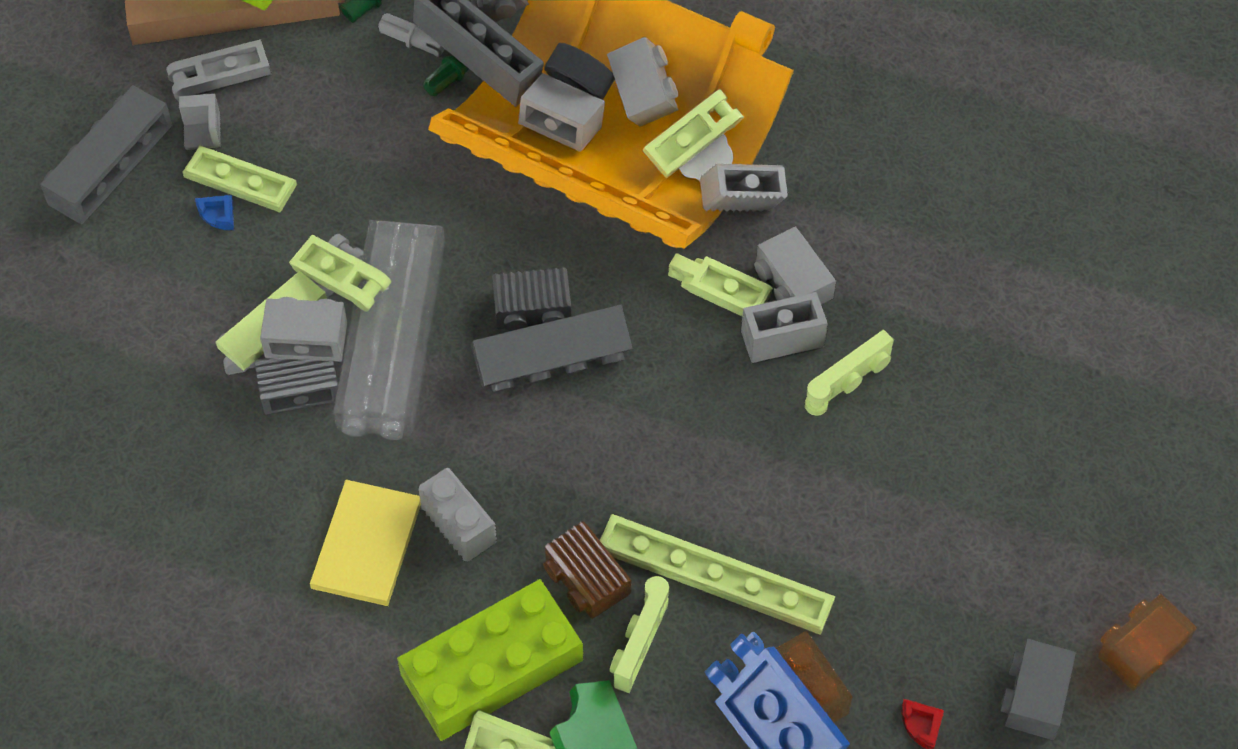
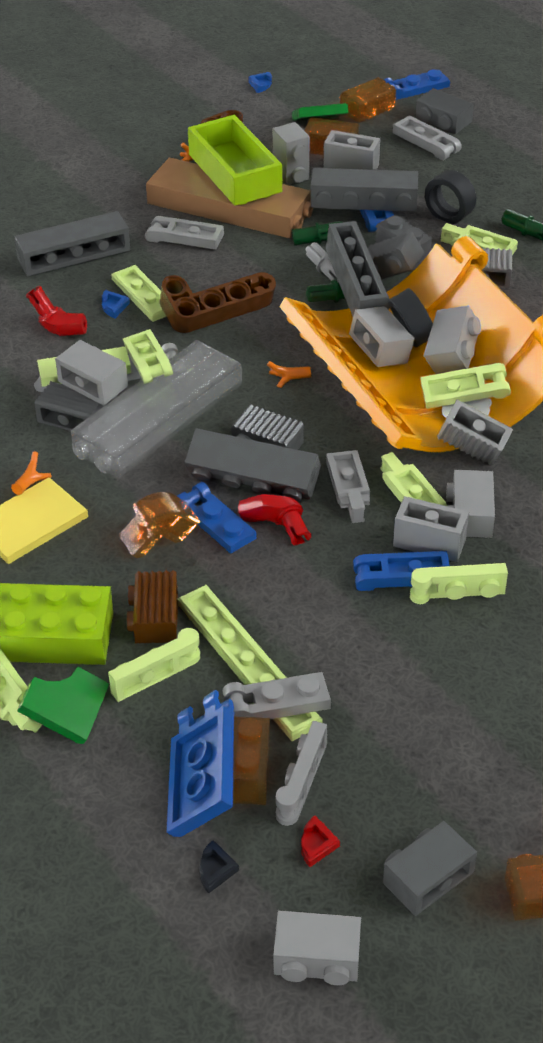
camera: 35 degrees right, 15 degrees down
(172, 269) = (54, 317): none -> red arm
(200, 121) = (150, 251): light grey panel -> none
(327, 491) = (29, 477): none -> orange bar
(344, 148) = (213, 305): none -> reddish brown beam
(457, 514) = (97, 529): light grey brick -> none
(488, 205) = (288, 373): none -> orange bar
(510, 471) = (156, 517): none -> clear orange brick
(555, 429) = (218, 519): none -> blue plate
(615, 386) = (279, 510): none -> red arm
(656, 312) = (349, 482): none -> light grey hinge
(780, 387) = (393, 567): none -> blue plate
(785, 598) = (279, 696): none -> light grey plate
(864, 666) = (301, 775): none -> light grey plate

